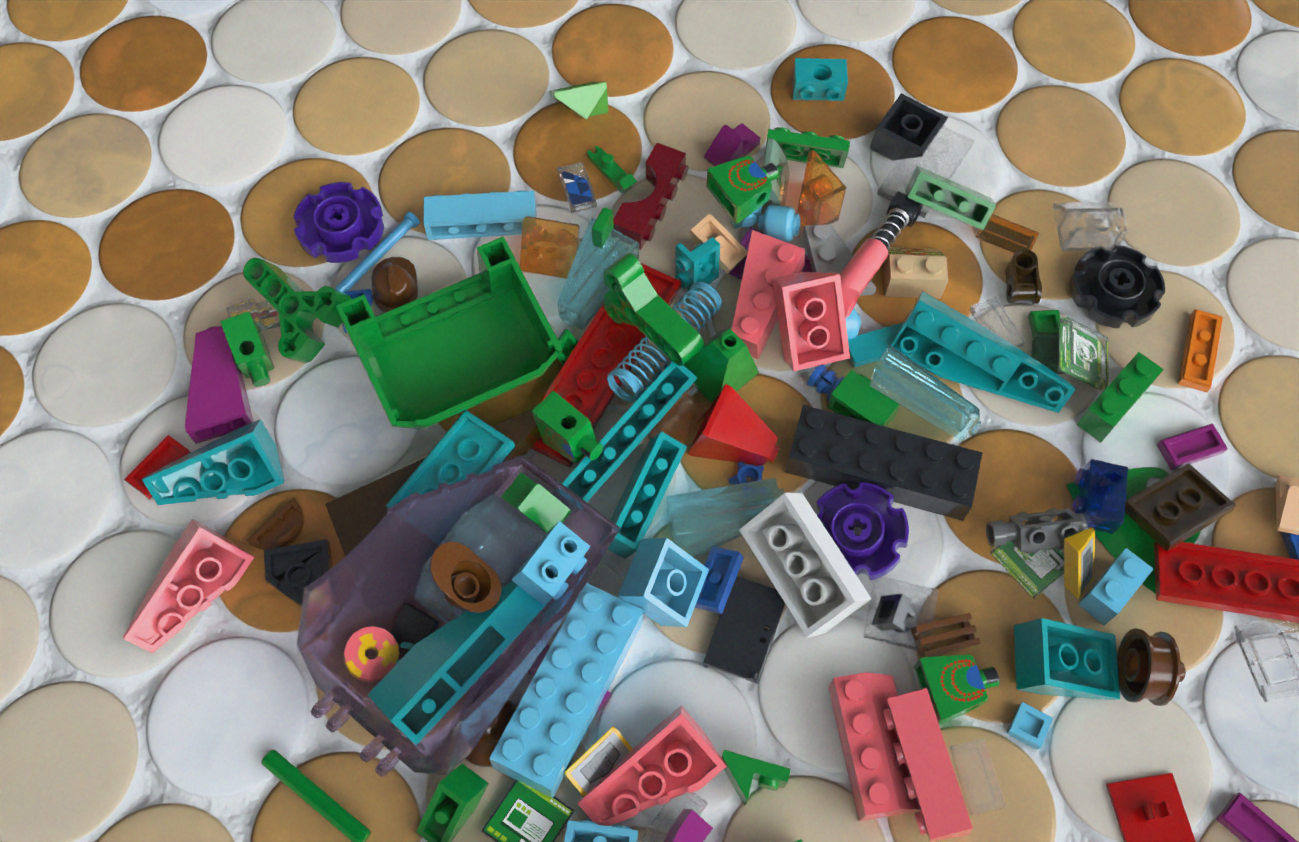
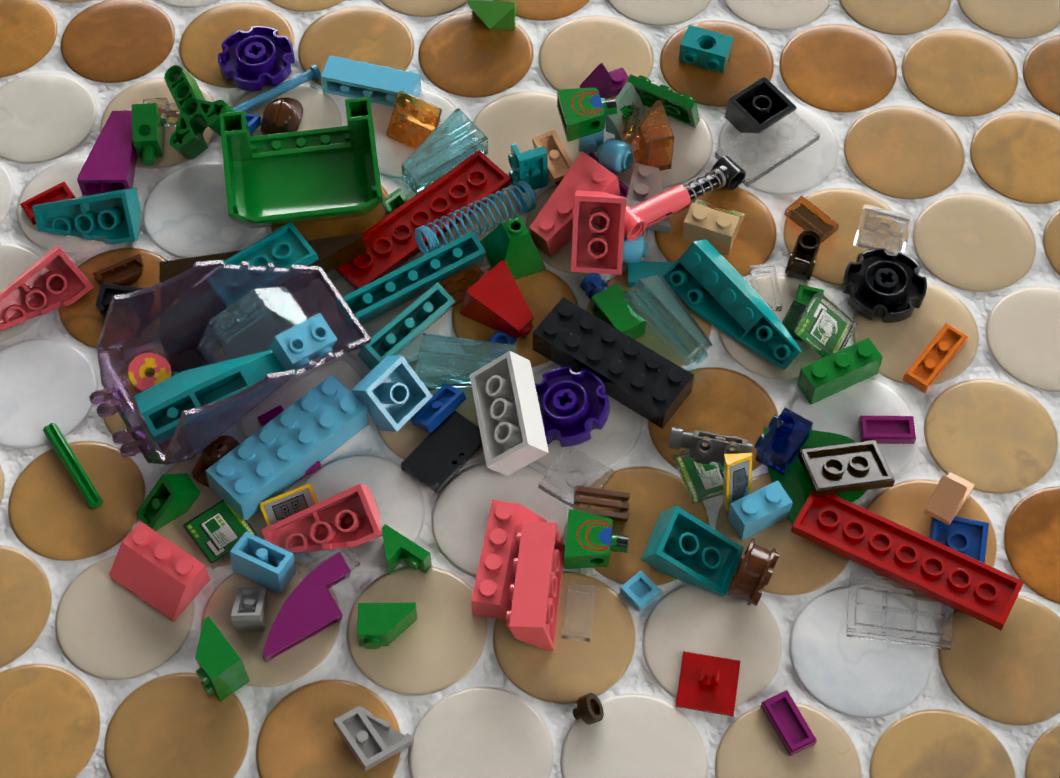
camera: 20 degrees right, 5 degrees down
(464, 578) = (233, 331): reddish brown piece -> none
(535, 502) = (313, 300): slope -> none
(566, 429) = (365, 267): green torso -> none
(576, 187) = (459, 82): slope -> none
(602, 227) = (460, 116): green tile -> none
(610, 169) = (495, 76): green piece -> none
(638, 304) = (459, 182): green beam -> none
(664, 171) = (498, 121): dark red arch -> none
(892, 613) = (563, 471): black tile -> none
(950, 198) = (767, 172): brick -> none

